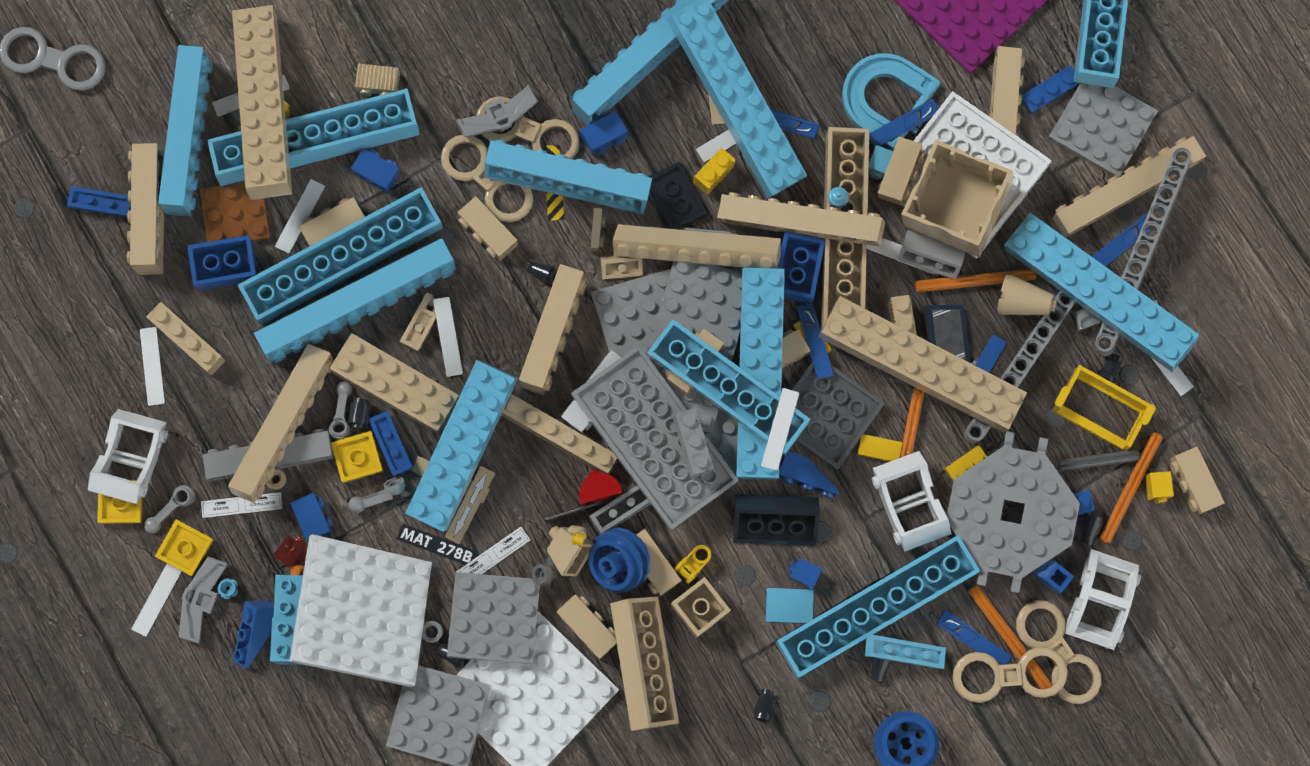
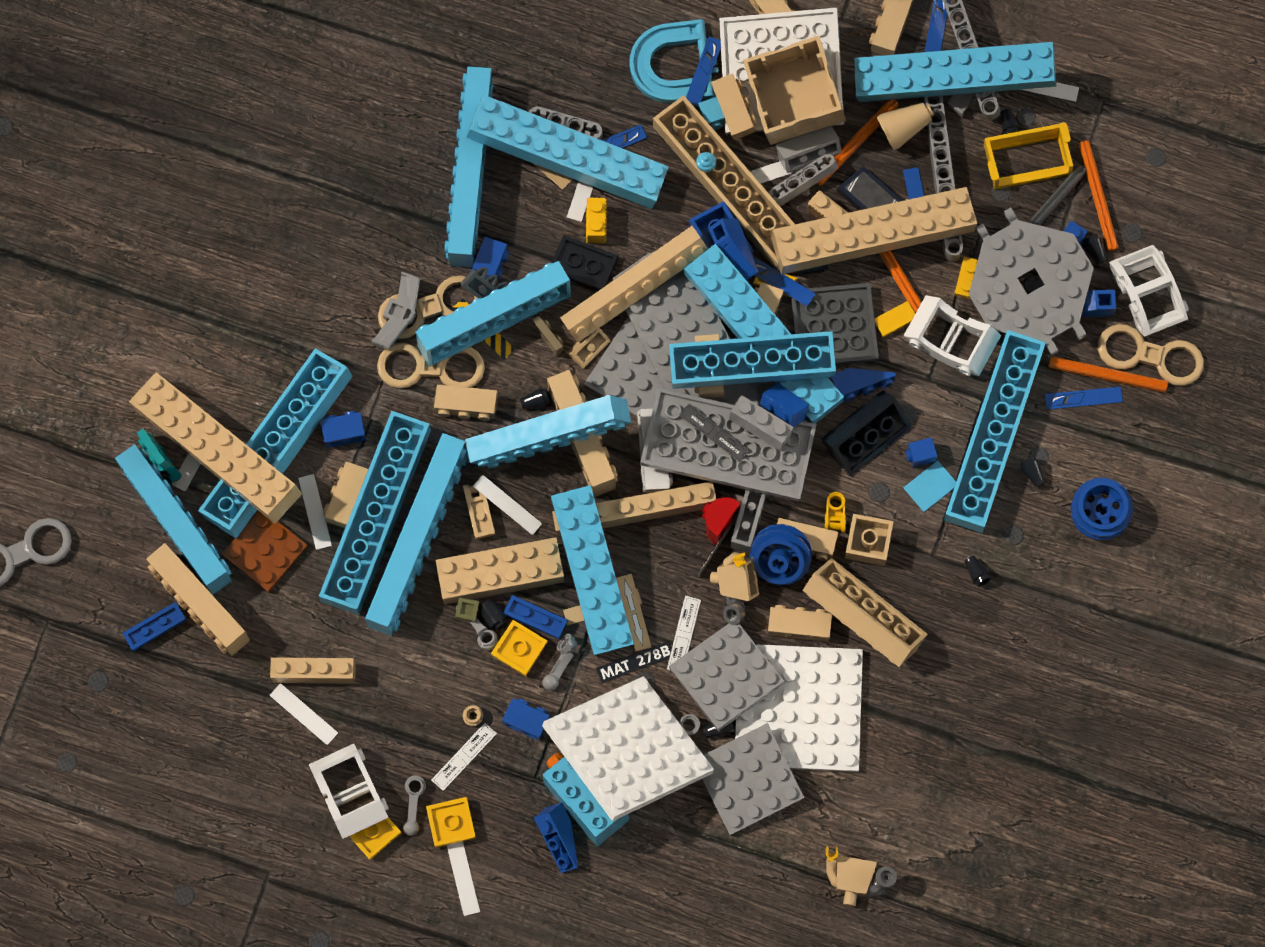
camera: 30 degrees left, 5 degrees down
(199, 599) = (496, 848): light grey plate -> none
(216, 69) = (157, 454): none -> teal plate
(222, 262) = (290, 591): blue brick -> none
(226, 582) = (504, 823): medium azure plate -> none
(281, 424) = (443, 667): tan brick -> none
(292, 551) = (537, 759): clear red brick -> none
(302, 450) = (452, 703): light grey brick -> none
(341, 392) = (466, 610): none -> olive plate
(376, 79) = (283, 363): tan brick -> none
(521, 308) = (548, 431): none -> medium azure brick
(577, 146) = (479, 285): none -> dark grey plate
(650, 418) = (714, 432): none -> flat silver sticker
(724, 444) = (784, 405): none -> blue brick
(762, 73) = (567, 120): none -> light grey beam
(780, 429) = (817, 357): white sticker -> none
(798, 283) = (731, 241): none -> blue slope
(801, 220) = (693, 201): tan brick -> none
(904, 279) = (804, 182): none -> light grey beam
(905, 651) = (1043, 445): medium azure plate -> none
(1010, 674) = (1131, 399): tan bar -> none
(1159, 486) = (1117, 177): yellow brick -> none
(1196, 481) = (1140, 151): tan brick -> none

